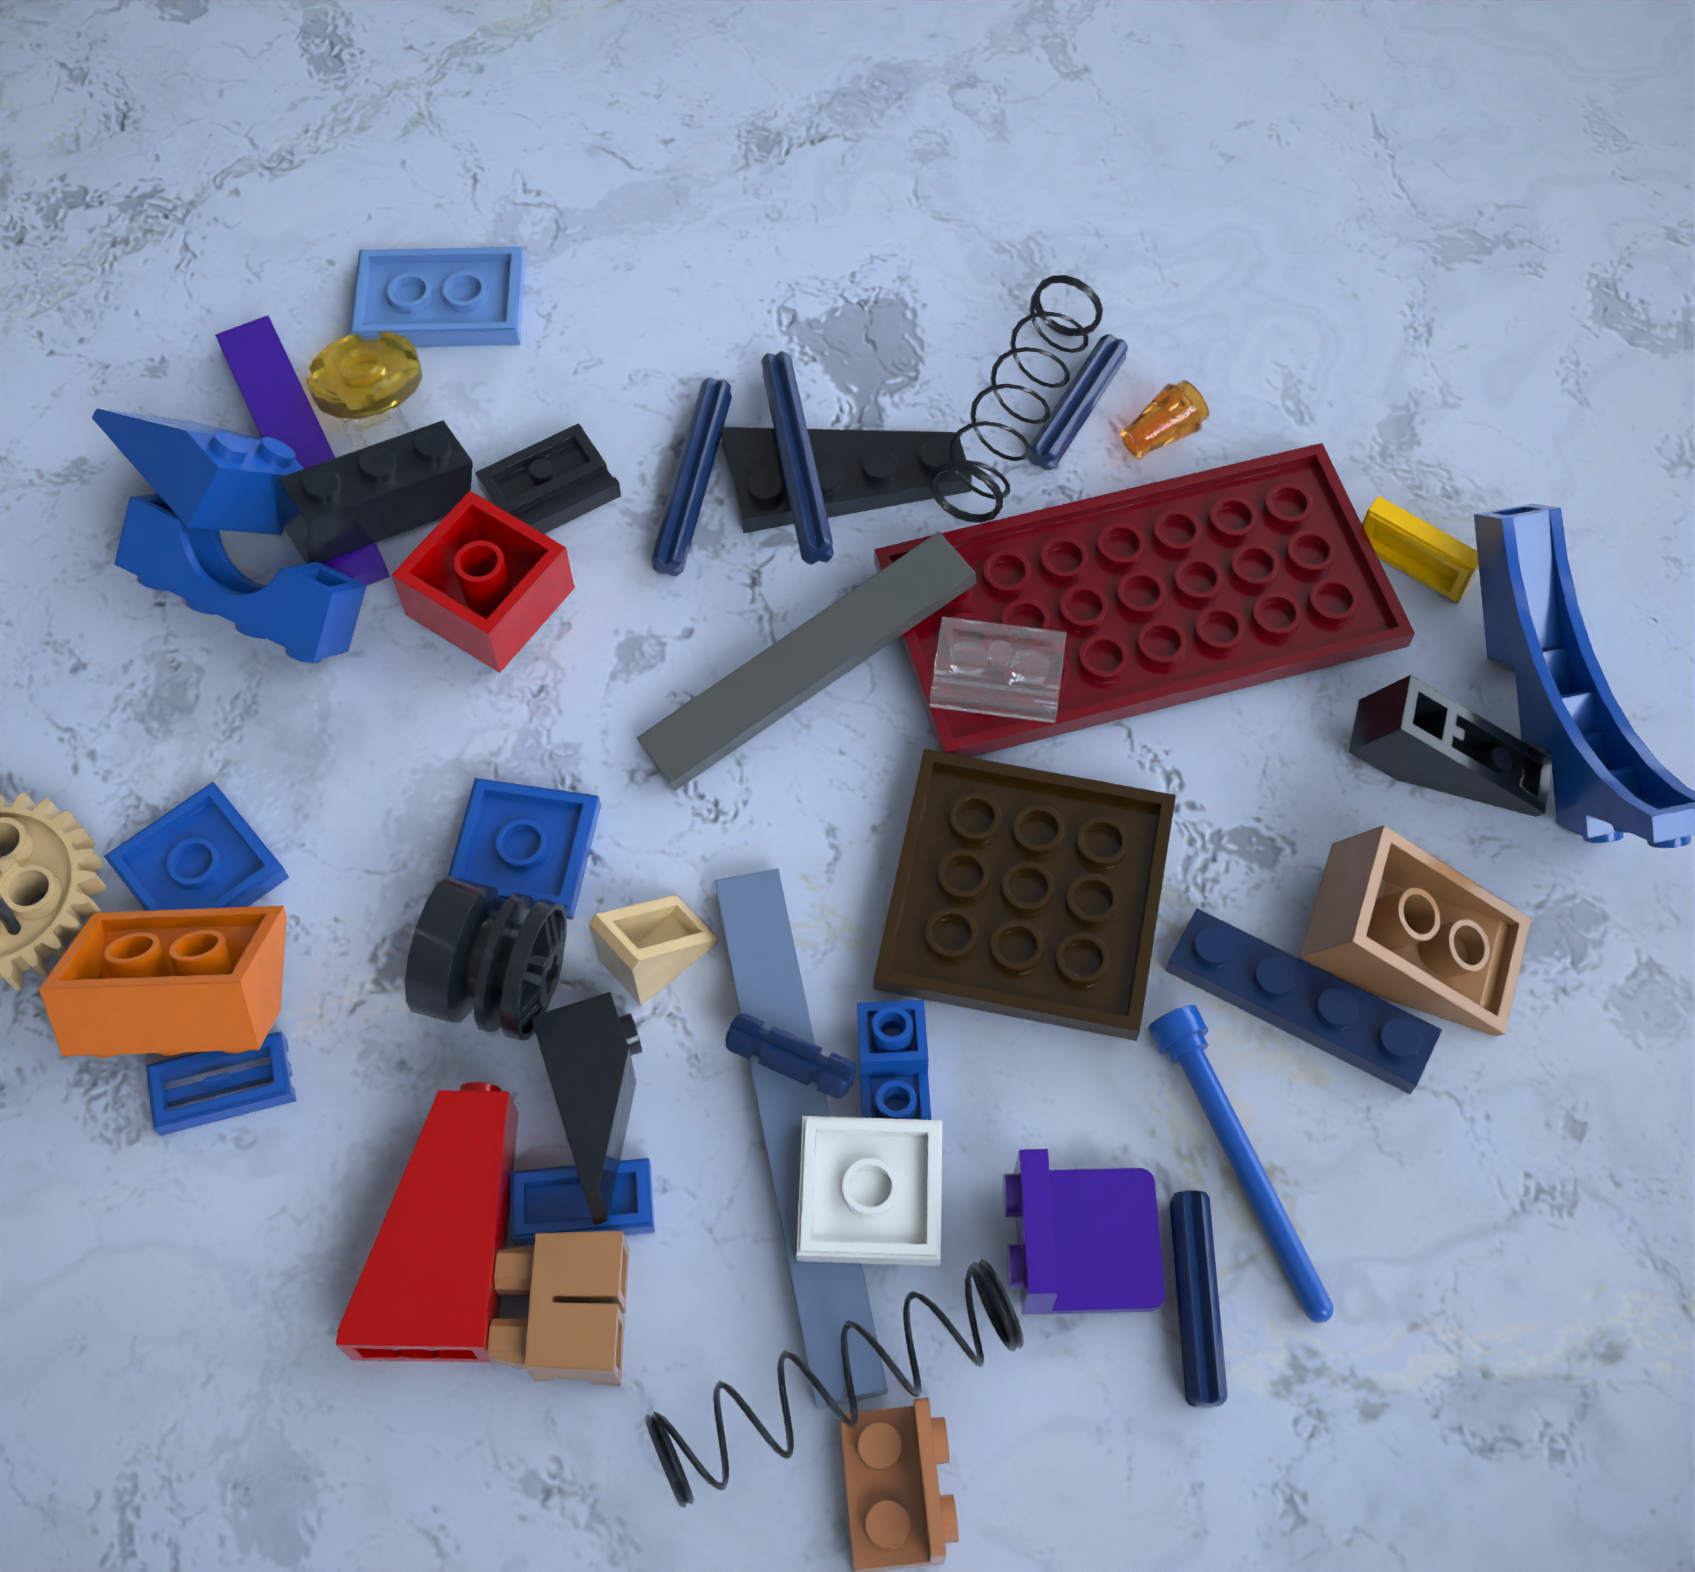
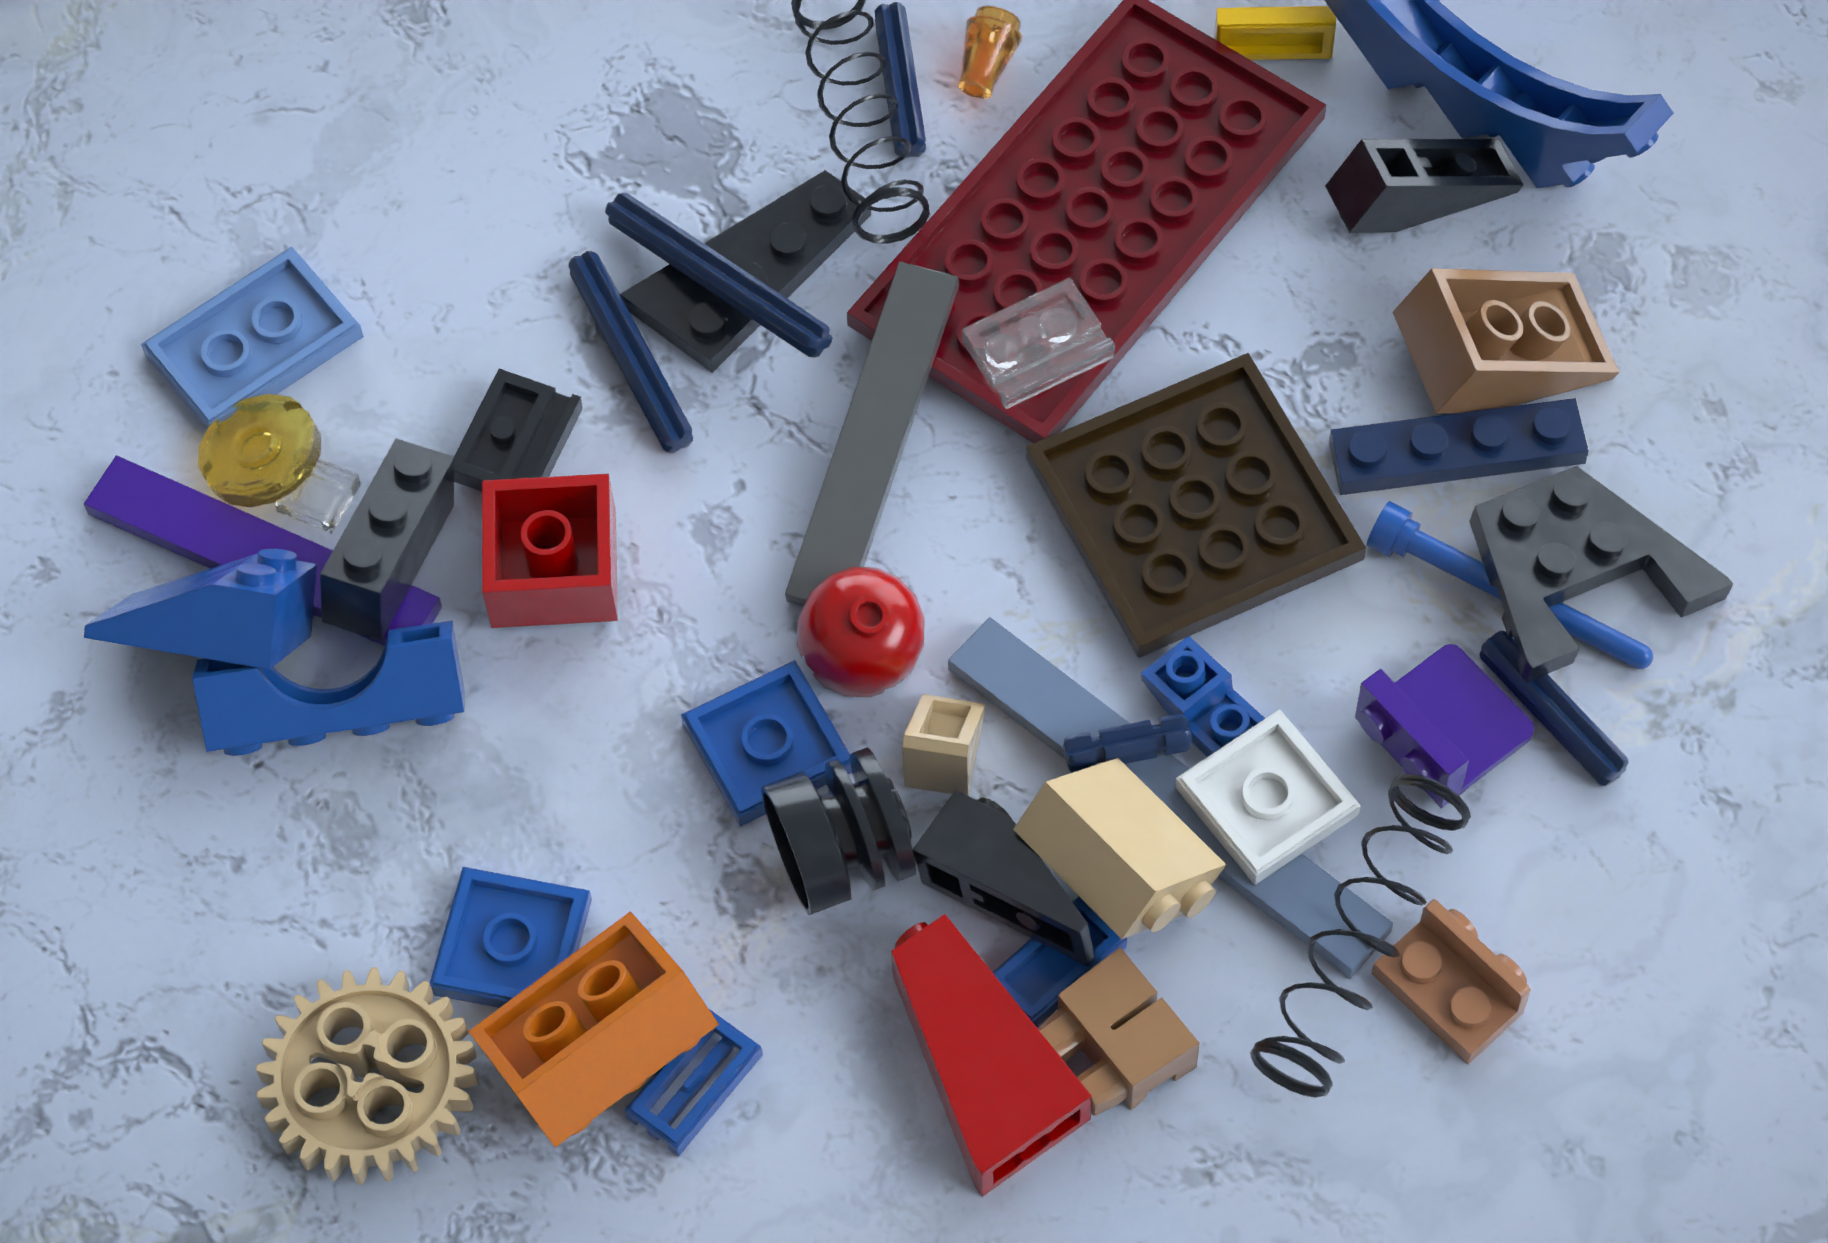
camera: 35 degrees left, 0 degrees up
(663, 808) = (861, 631): none -> red cylinder
(696, 1144) = (1120, 848): none -> tan brick
(1331, 1153) = (1568, 540): none -> wing

